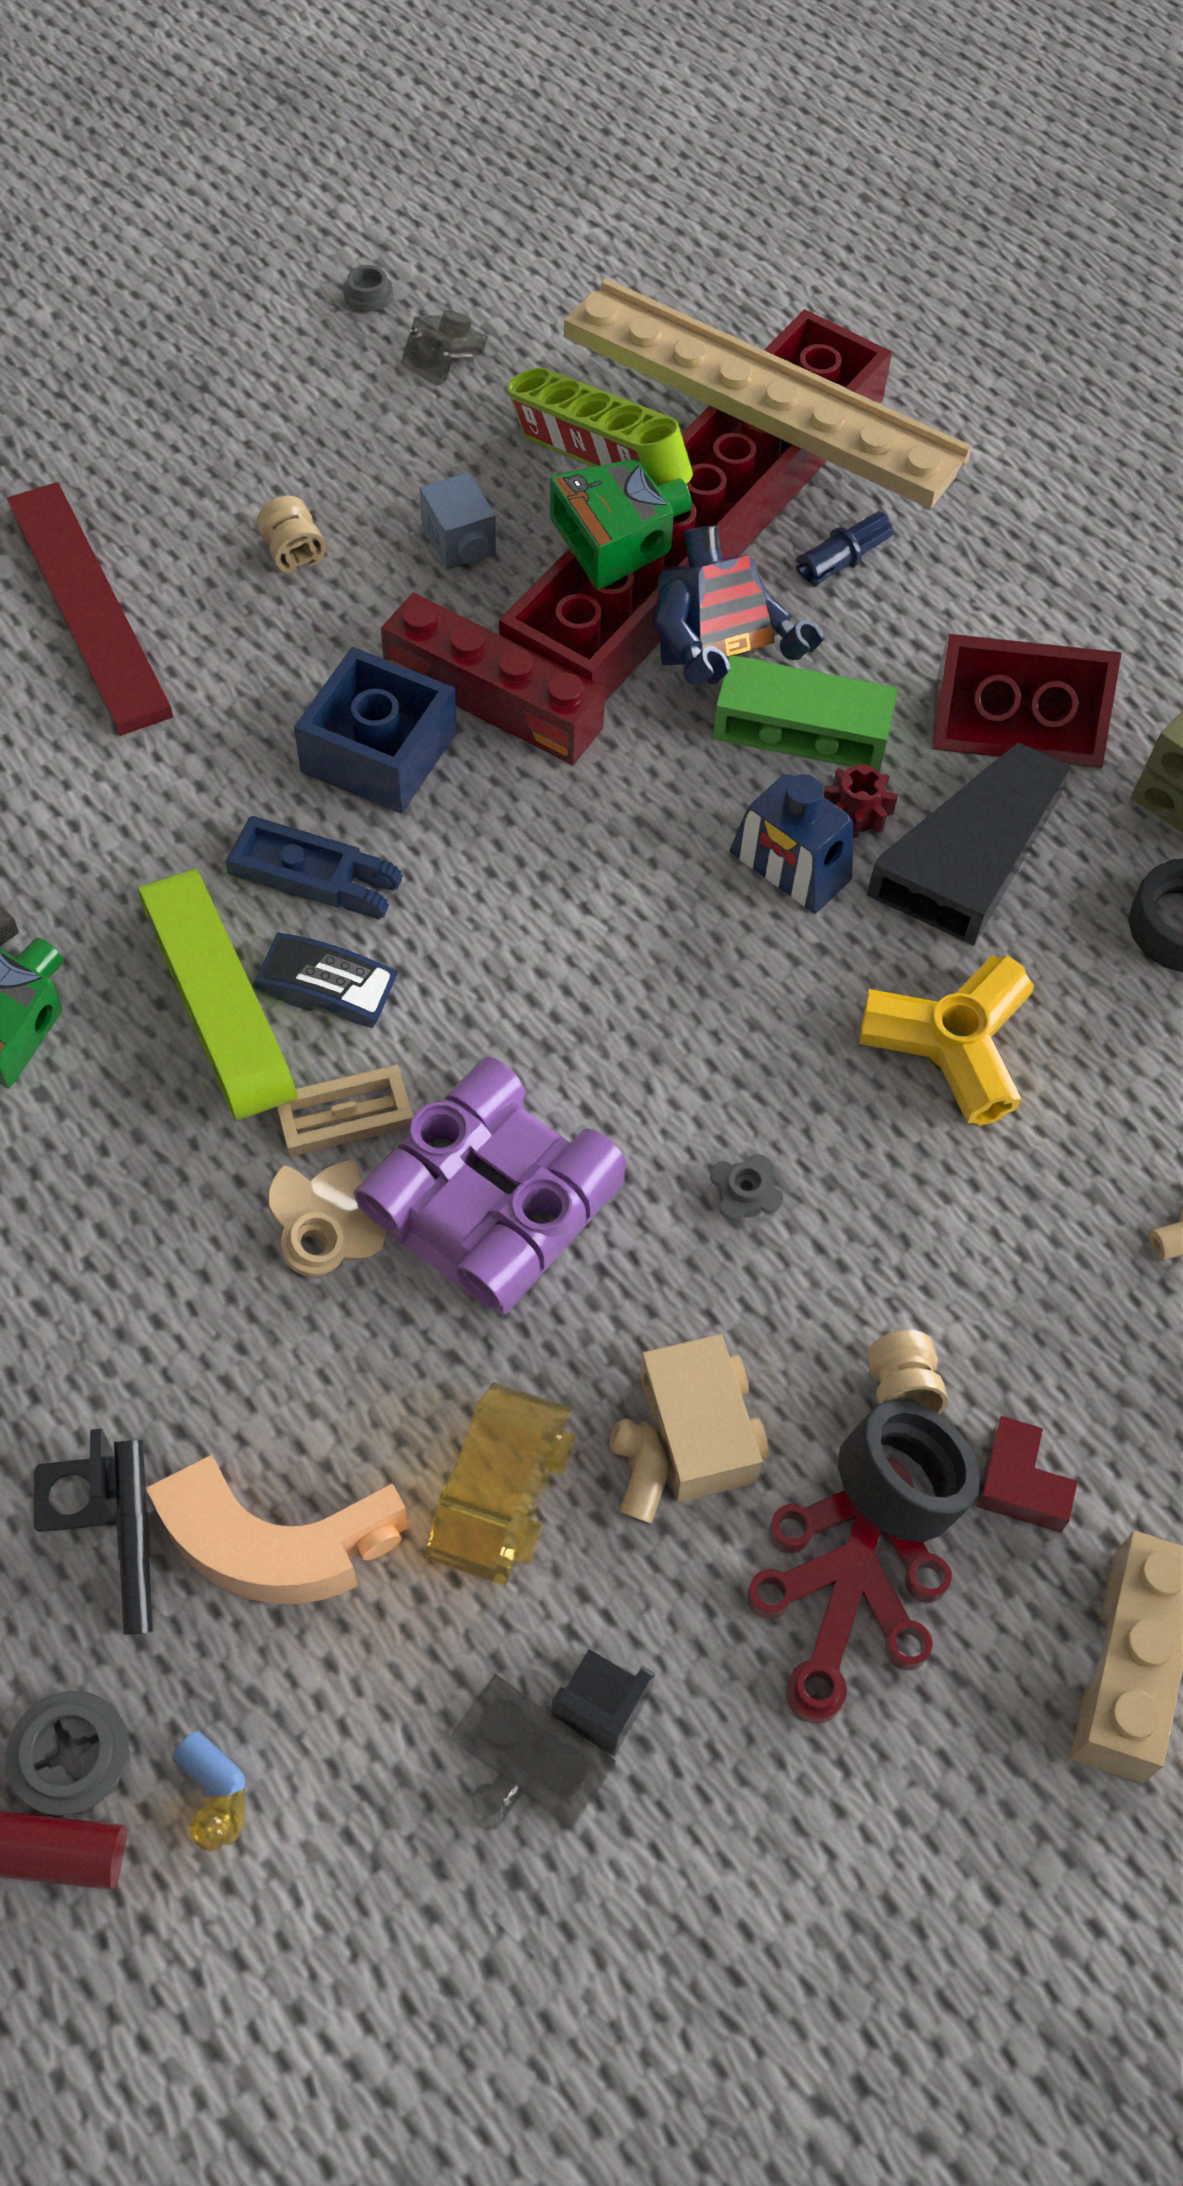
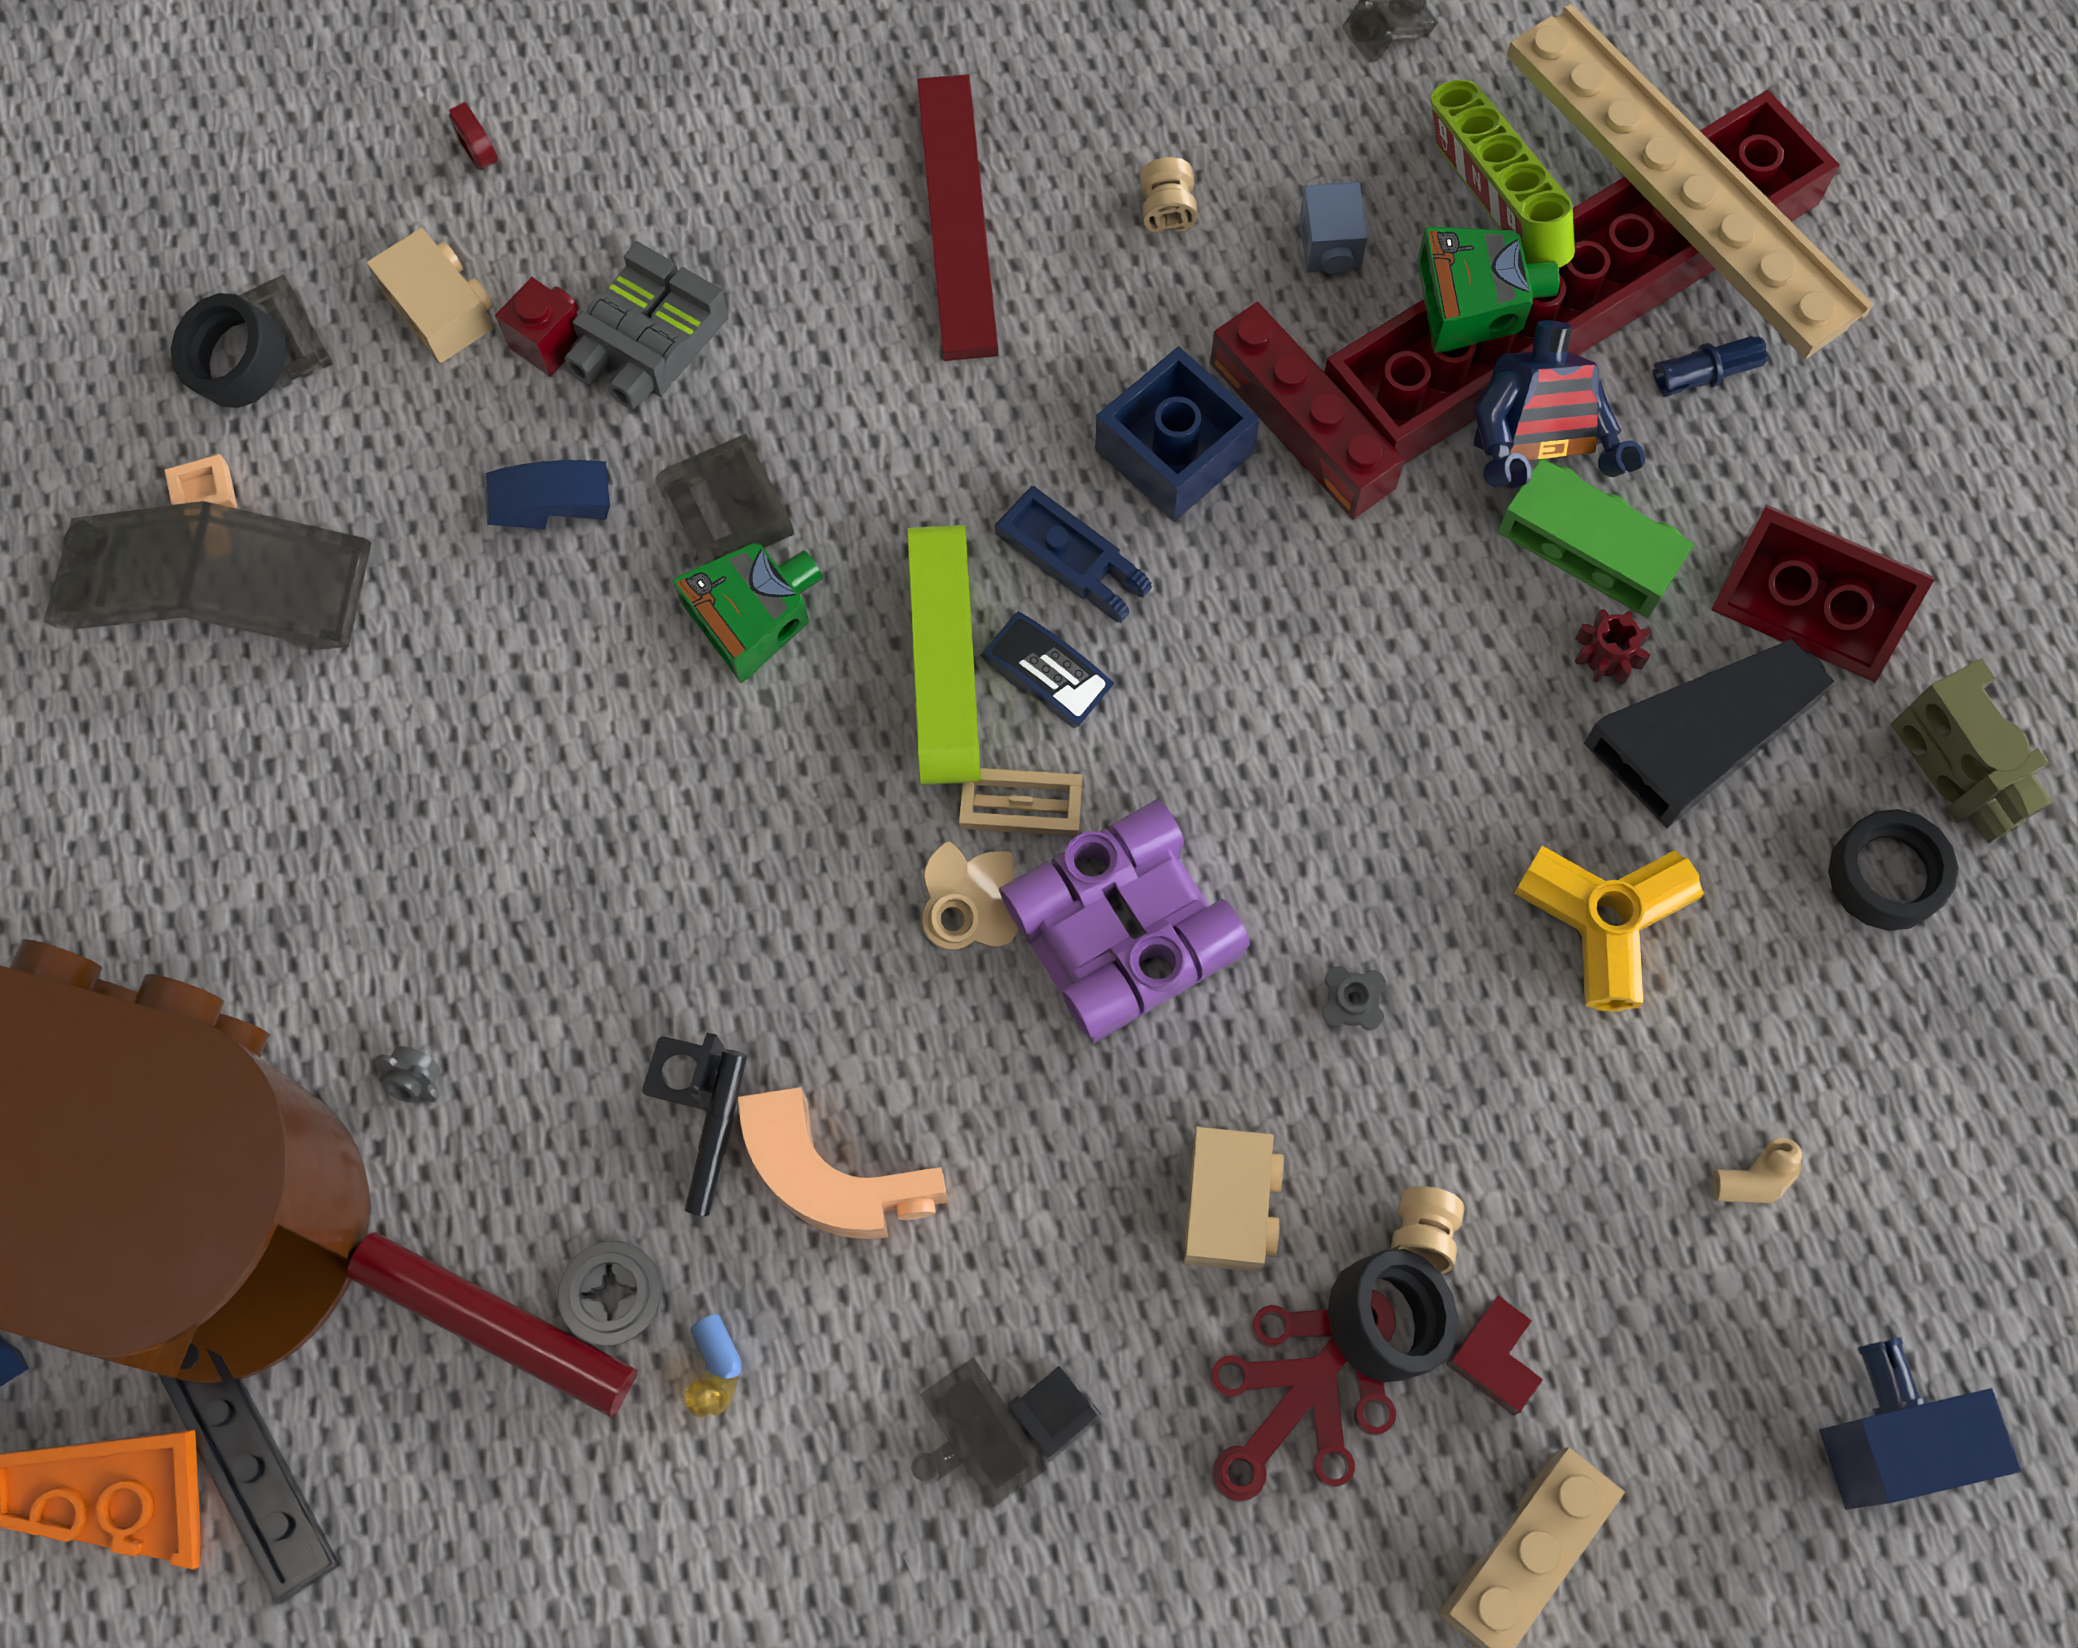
camera: 25 degrees right, 10 degrees up
(498, 1484) = (1034, 1194): clear yellow brick -> none
(648, 1467) = (1169, 1223): tan arm -> none
(798, 841) = (1526, 670): dark blue torso -> none

